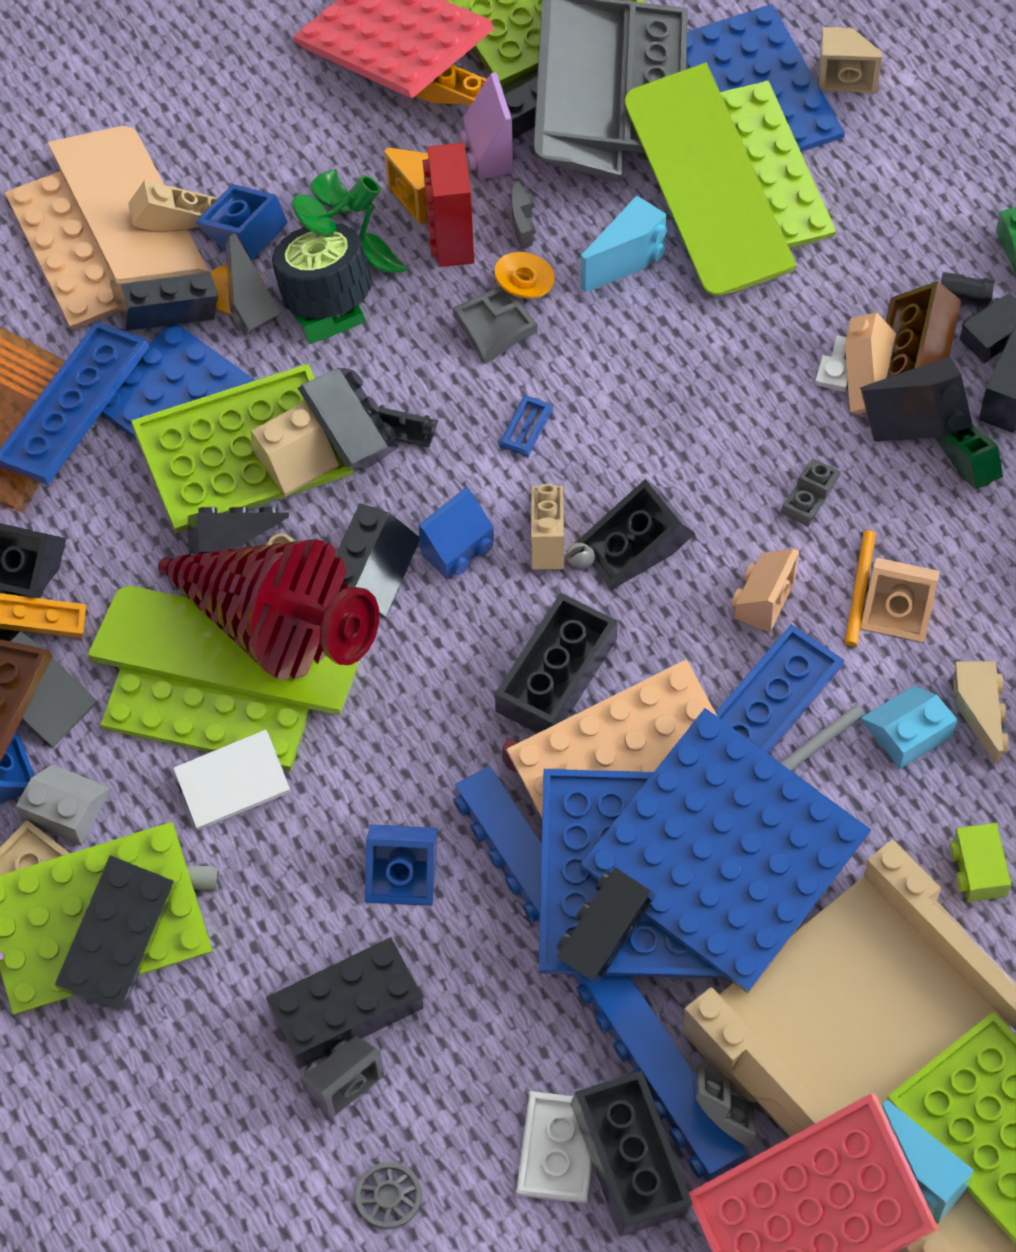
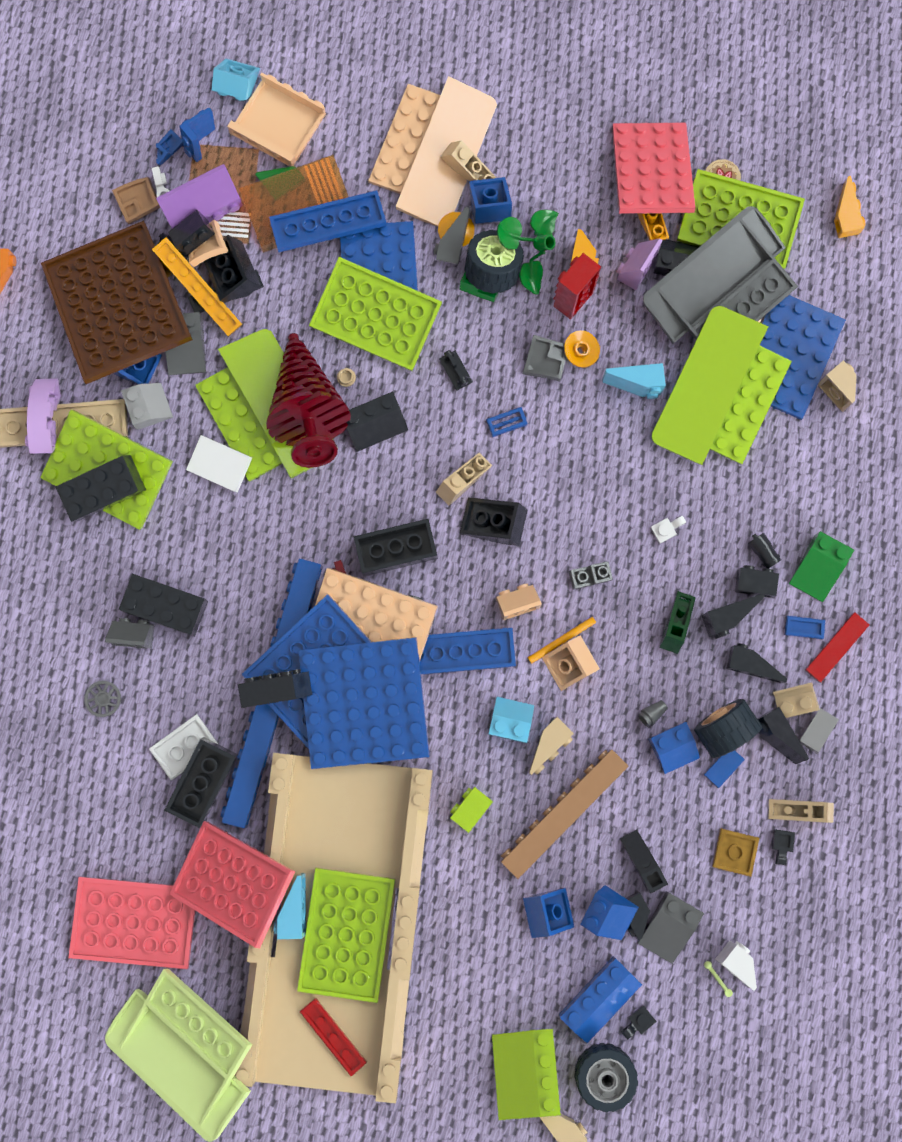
camera: 45 degrees right, 20 degrees up
(165, 299) = (417, 206): black slope -> none
(204, 877) = (167, 494): light grey hinge -> none
(222, 531) = (327, 348): black slope -> none
(293, 449) = (391, 338): tan slope -> none
(349, 418) = (427, 346): slope -> none
(400, 864) = (246, 568): blue slope -> none
(456, 534) = (418, 446): blue slope -> none
(521, 213) = (615, 314): dark grey slope -> none
(583, 559) = (461, 510): light grey hinge -> none
(724, 1109) = (253, 802): dark grey slope -> none
(823, 737) = (462, 687): light grey bar -> none
(867, 355) = (681, 541): light nougat slope -> none
(918, 403) = (676, 586): black slope -> none
(923, 326) = (711, 555): reddish brown slope -> none

